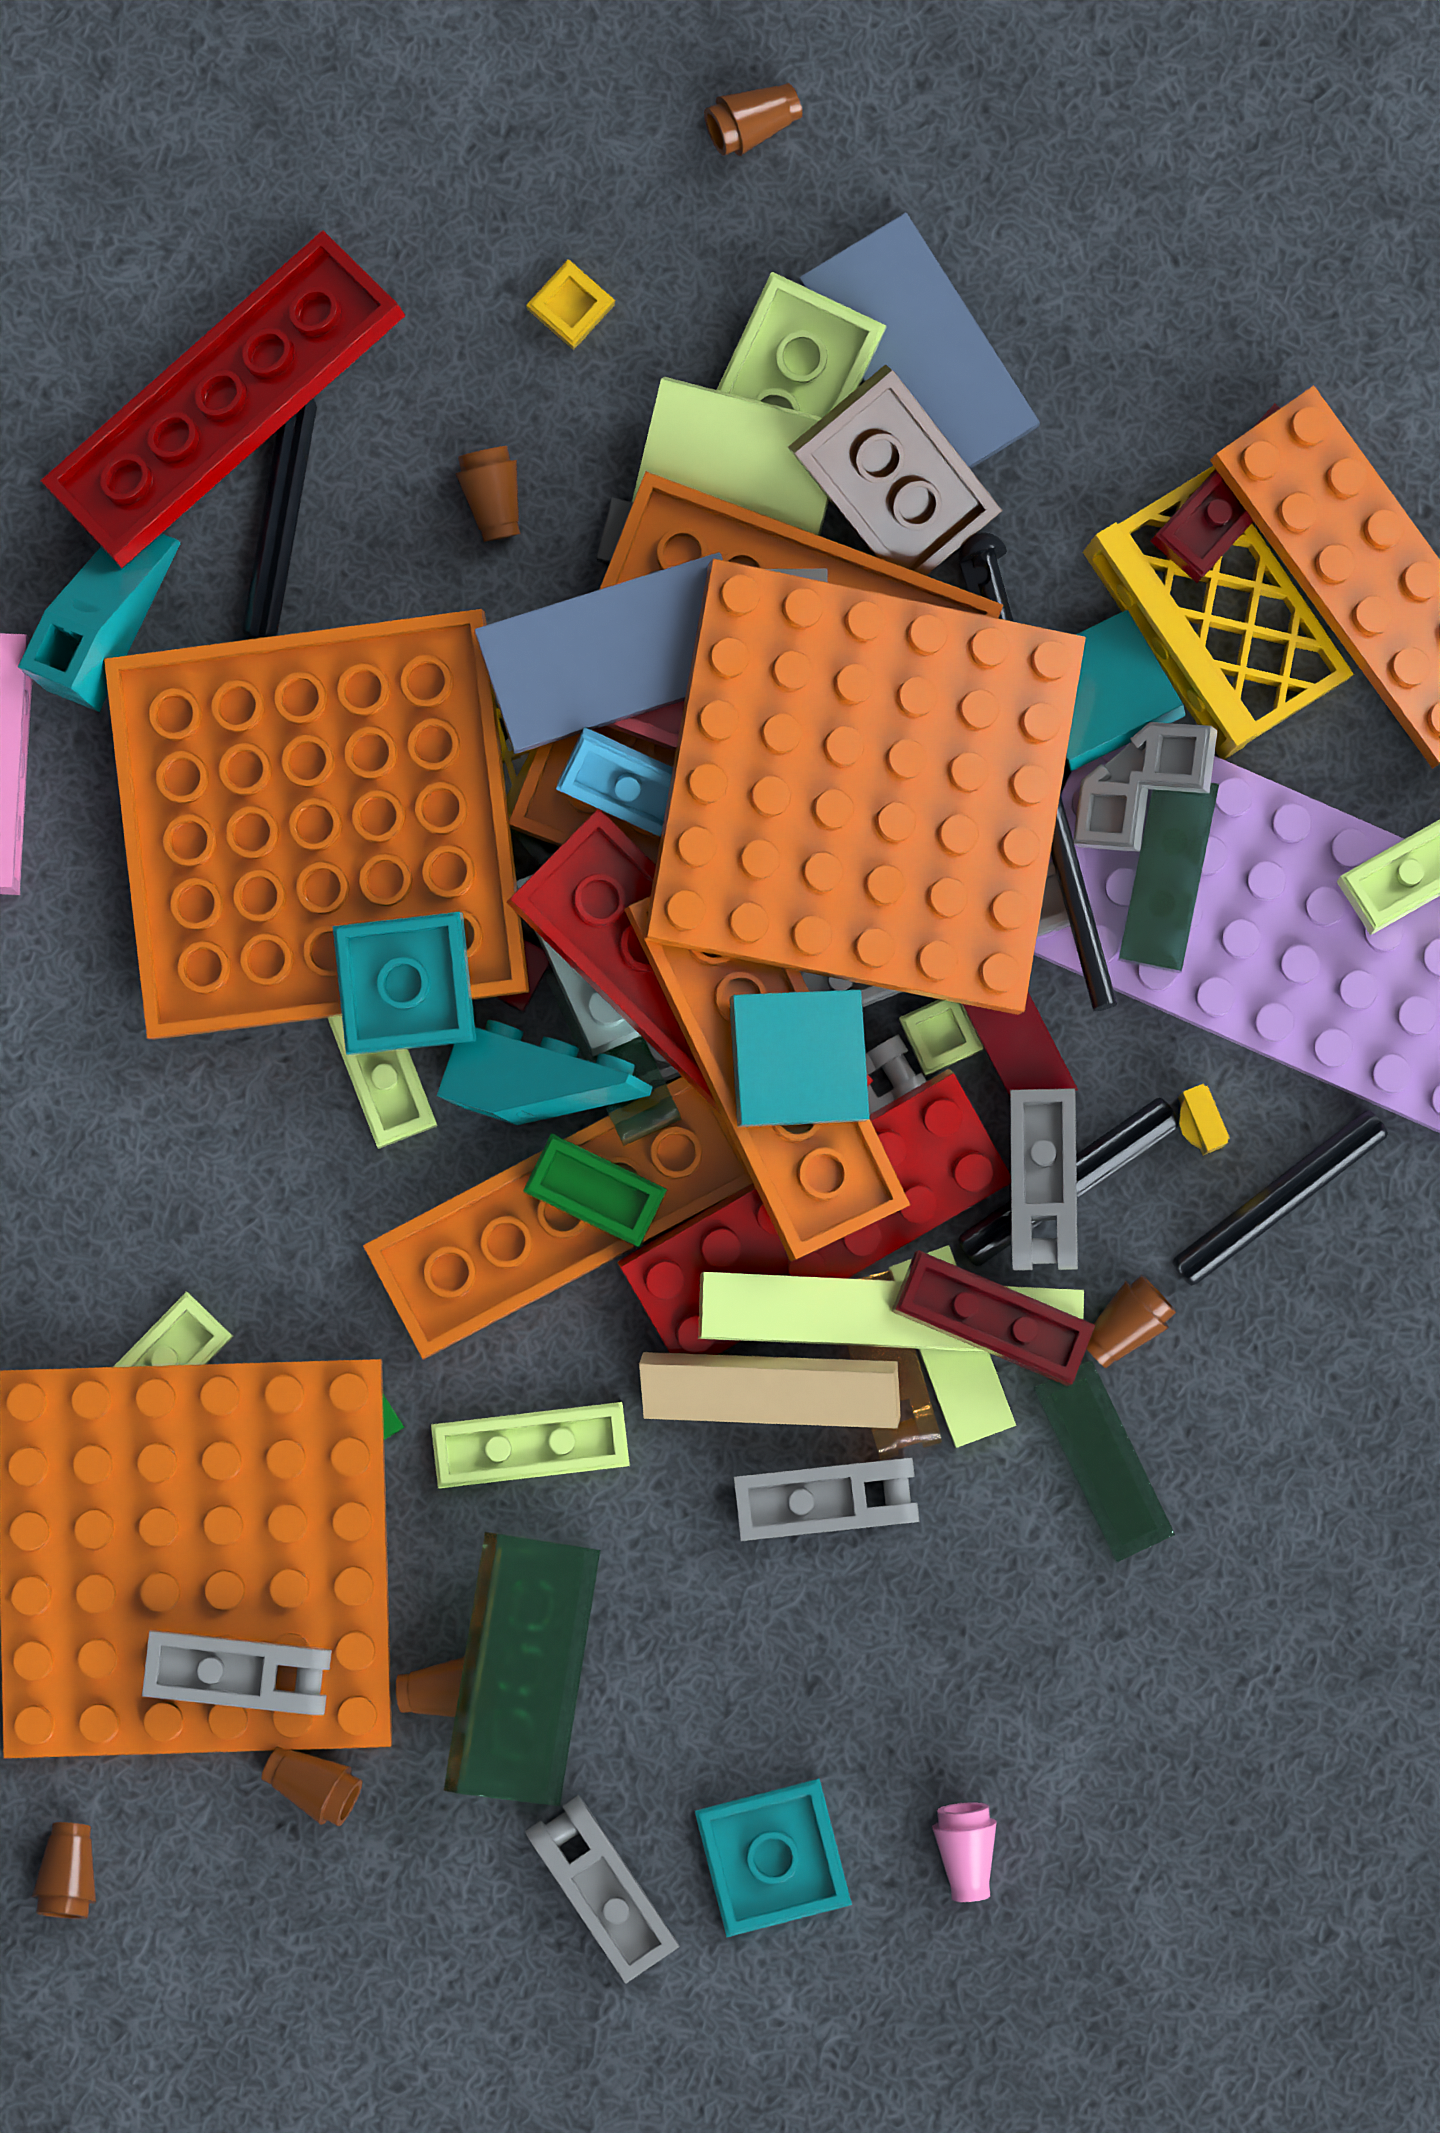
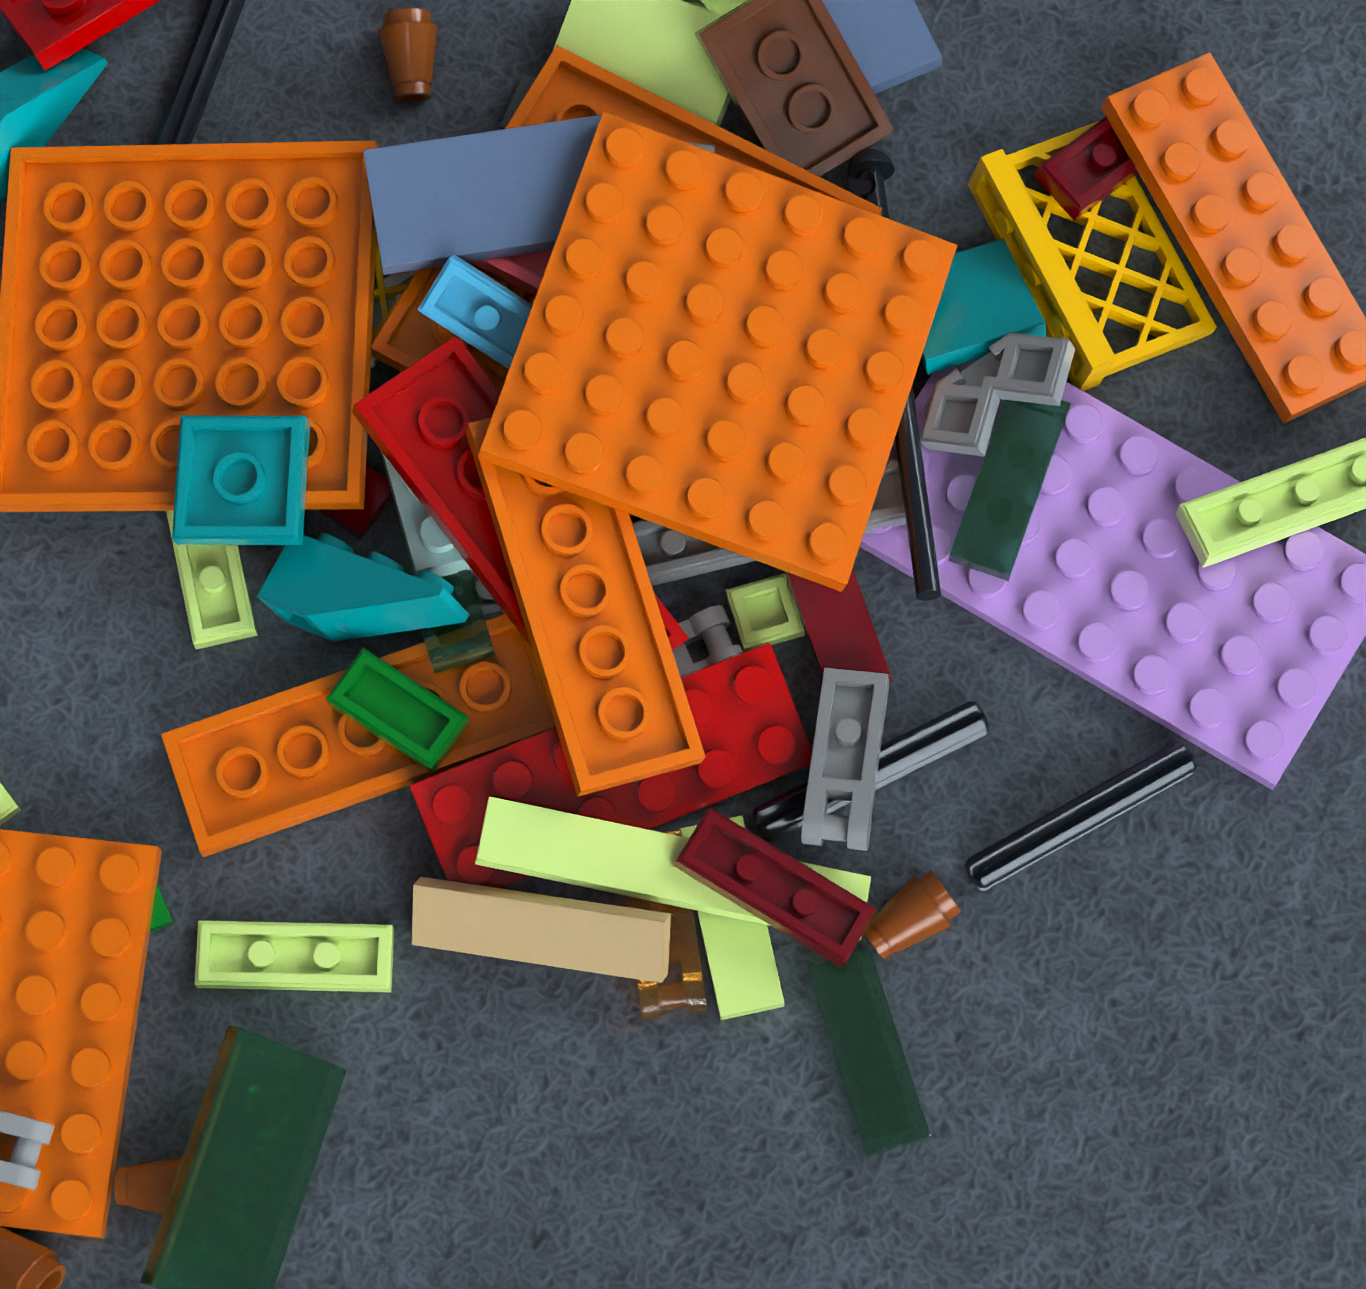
camera: 10 degrees right, 10 degrees down
(799, 1058) = (614, 593): teal tile -> none
(823, 1499) = (579, 1049): light grey plate -> none
(1201, 1120) = (1012, 727): yellow tile -> none

